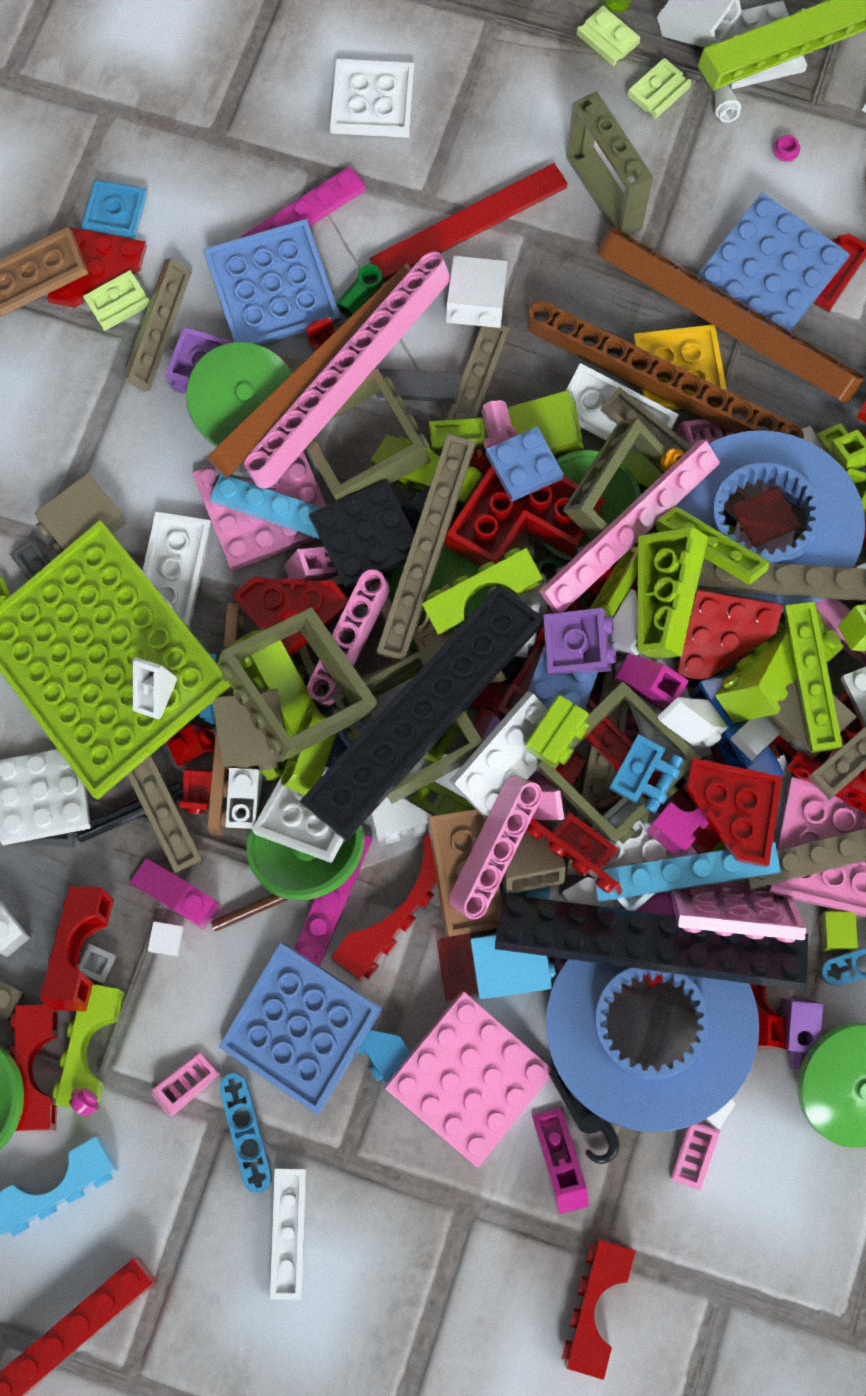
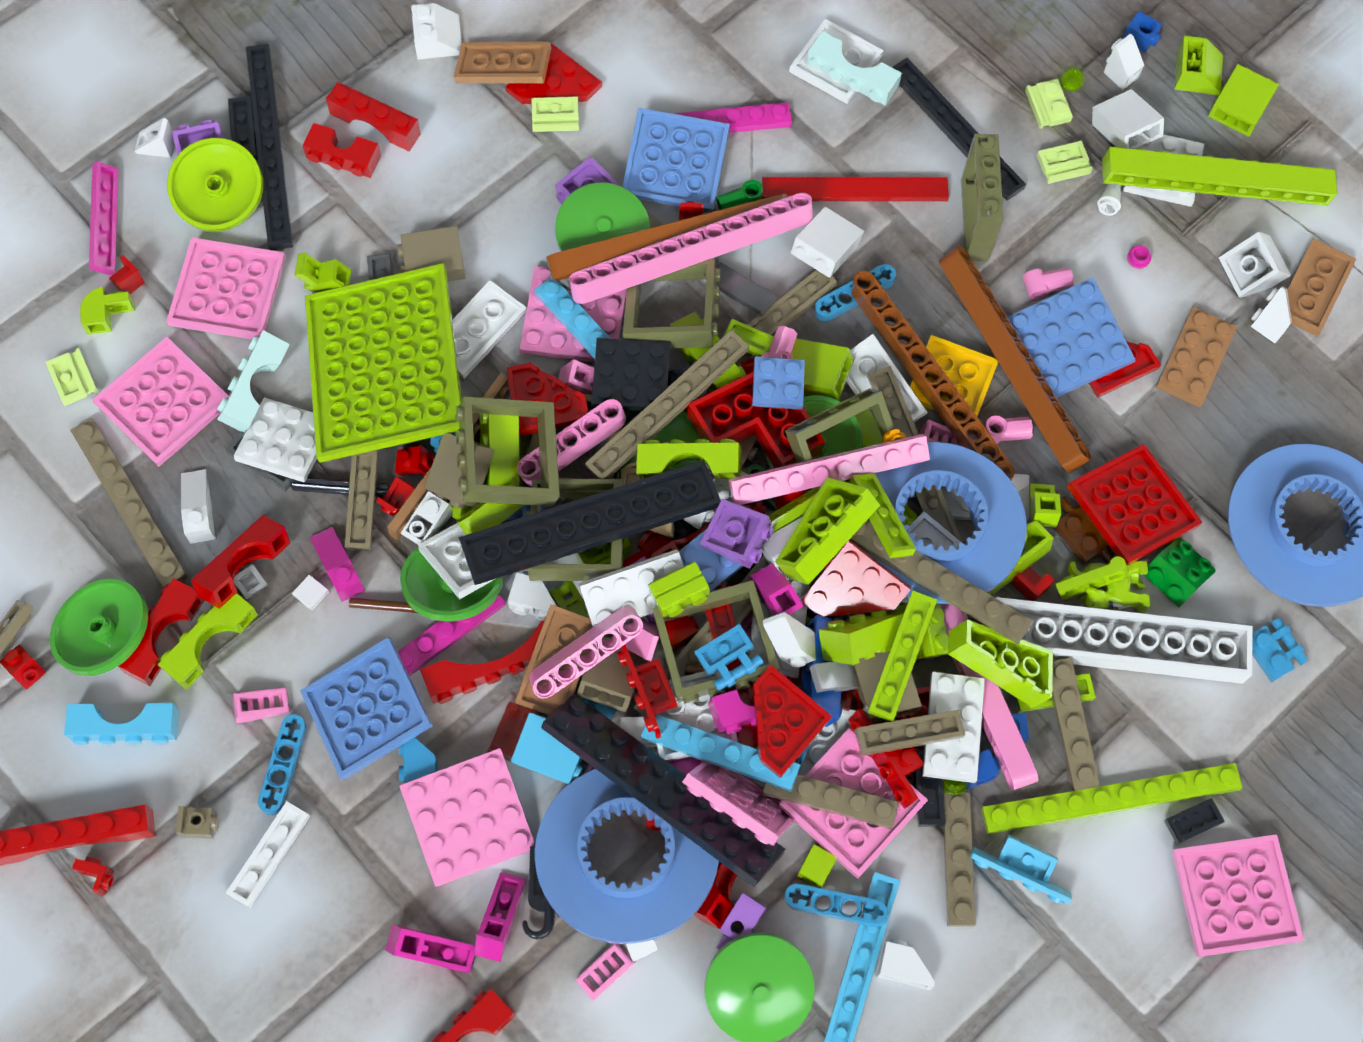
camera: 25 degrees right, 5 degrees down
(84, 1101) = (178, 672): dark pink plate -> none
(114, 209) = (593, 47): dark azure plate -> none
(114, 1353) = (93, 868): none -> red bracket
(151, 688) = (403, 399): white slope -> none
(157, 325) = (573, 146): dark tan plate -> none
(185, 1253) = (205, 829): none -> dark tan brick
(427, 101) = (875, 82): none -> light aqua arch
(508, 97) = (950, 120): none -> black plate
(509, 1234) = (430, 948): none -> dark pink slope
(527, 352) = (840, 307): none -> dark azure beam
(709, 225) = (1040, 283): none -> bright pink piece
(765, 517) = (940, 518): clear red piece -> none
(766, 387) = (1009, 428): none -> bright pink piece

